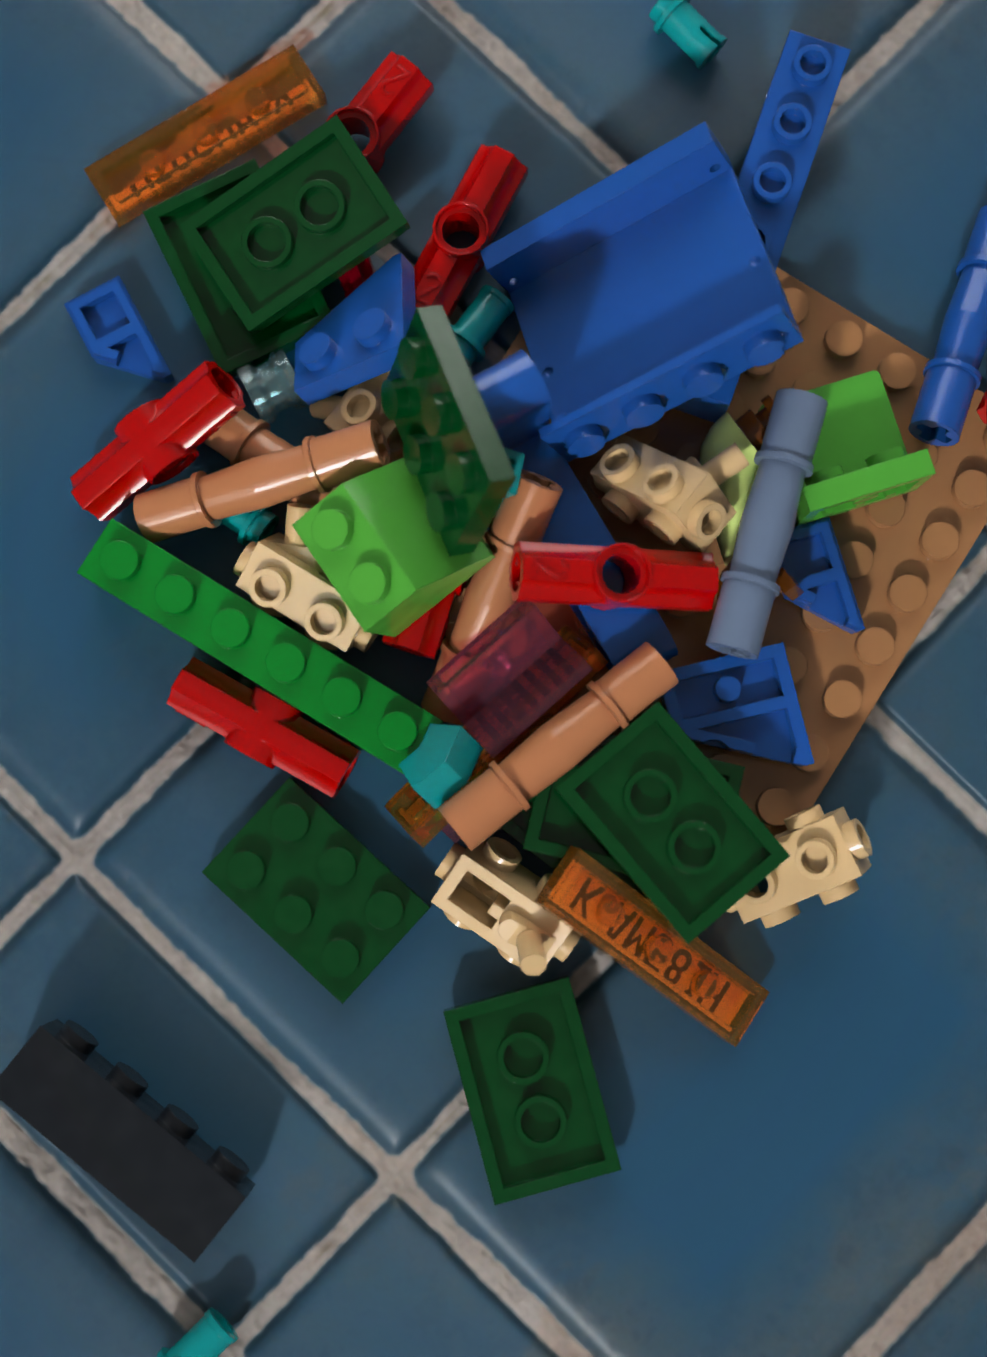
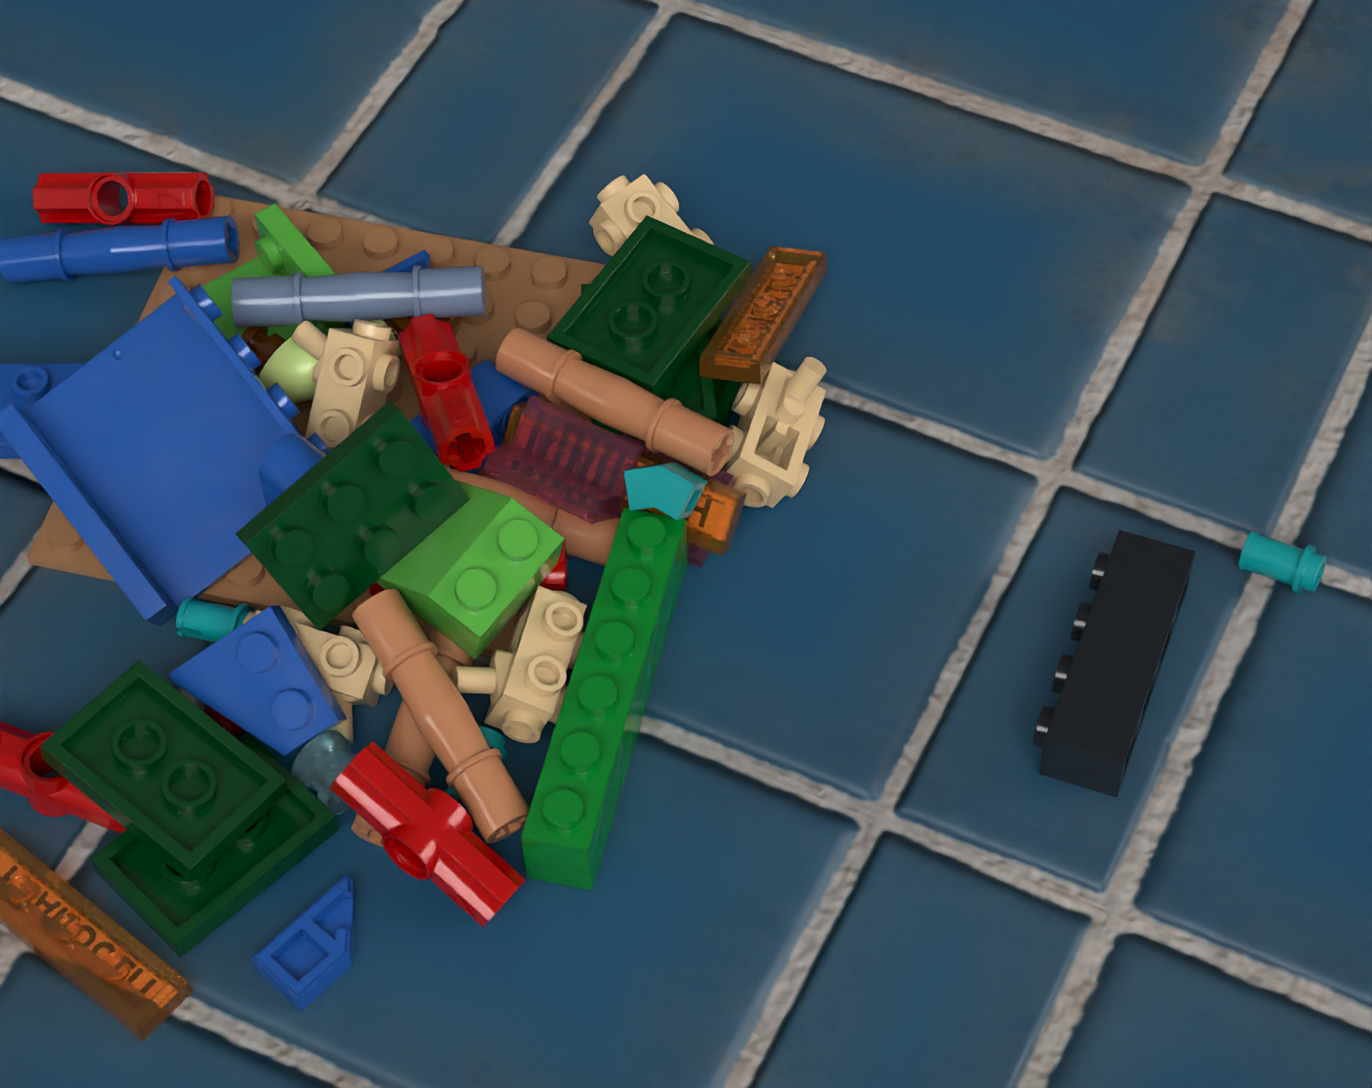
camera: 105 degrees left, 30 degrees down
(263, 727) = (683, 679): red piece -> none
(316, 890) = (821, 601): dark green plate -> none
(477, 208) = (103, 650): red piece -> none
(531, 1090) = (928, 383): dark green plate -> none
(742, 706) = (524, 297): blue wing -> none

